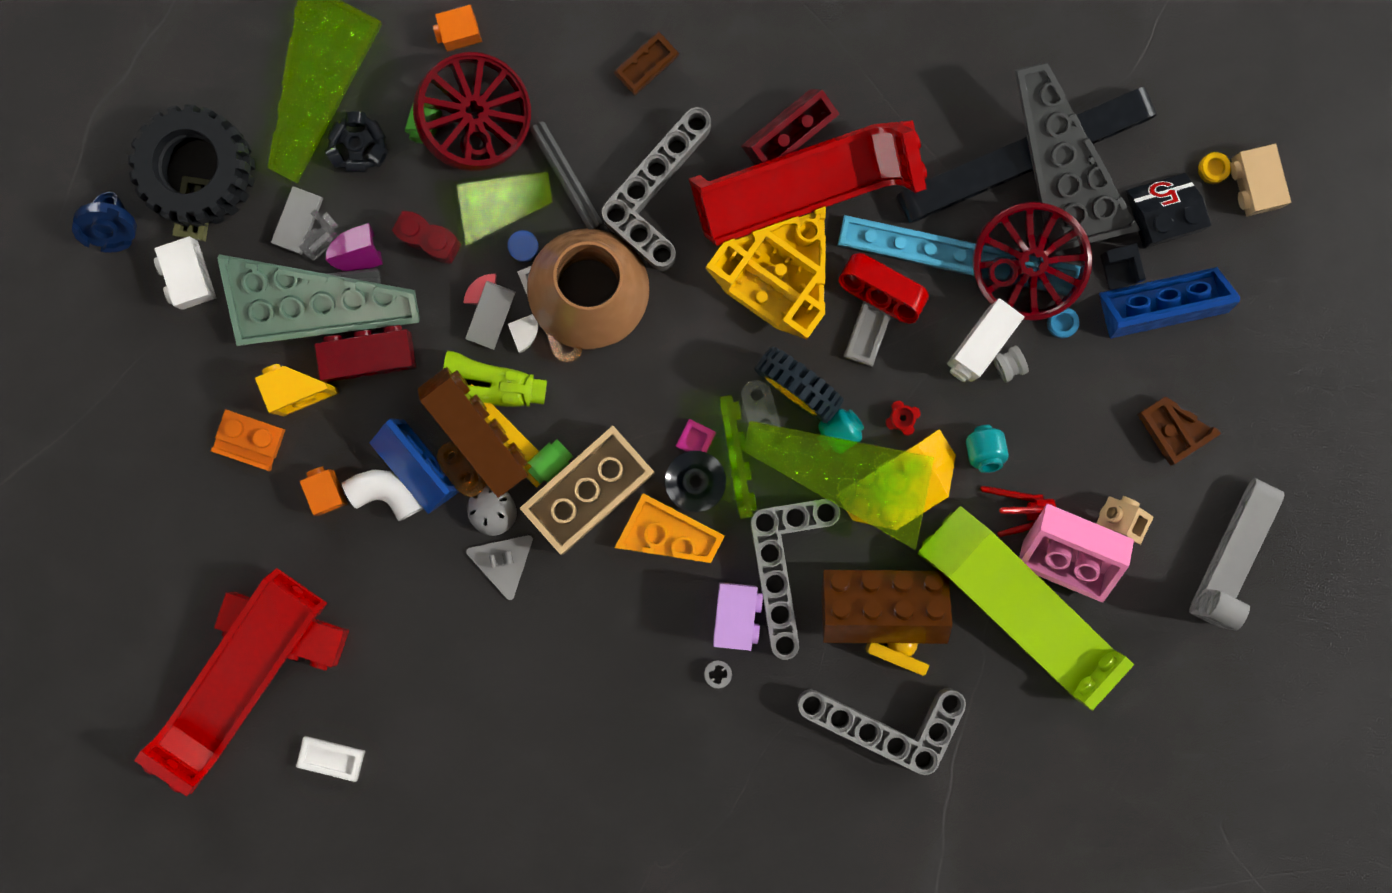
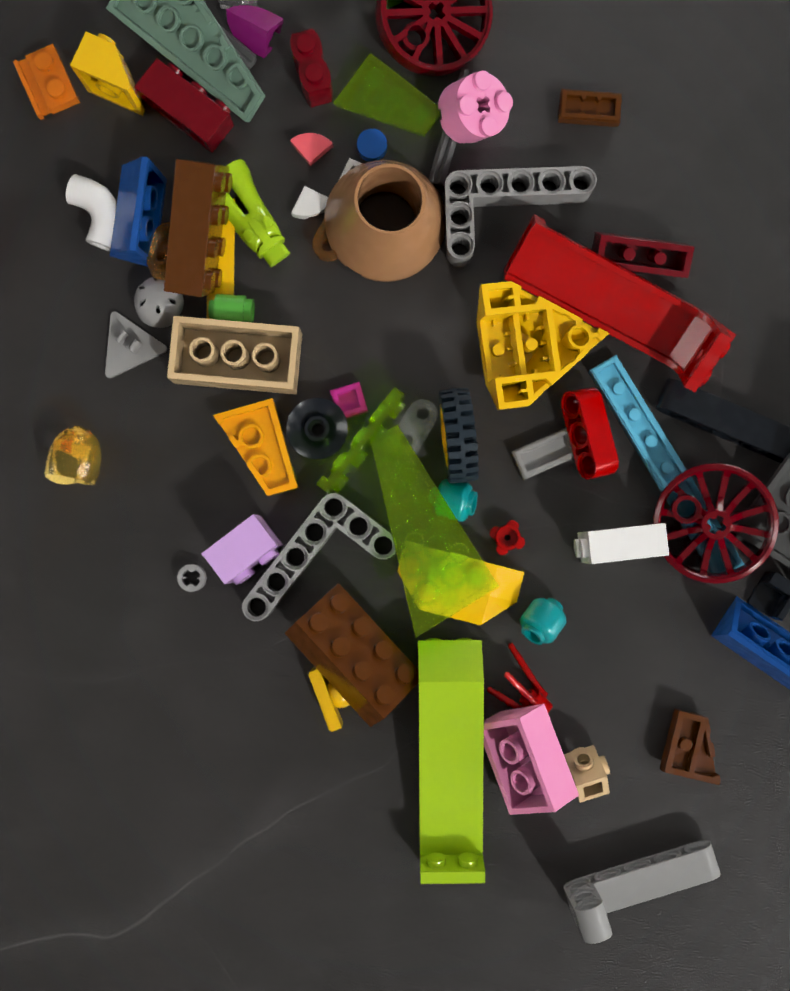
camera: 50 degrees right, 0 degrees up
(323, 491) = (56, 166): orange brick -> none
(490, 315) = (298, 167): light grey tile -> none
(552, 676) = (74, 457): none -> clear yellow piece
(571, 149) = (474, 108): none -> bright pink brick
(884, 733) = (262, 742): light grey beam -> none
(1011, 364) = (622, 579): light grey wheel -> none
(1063, 324) = (689, 591): dark azure tile -> none

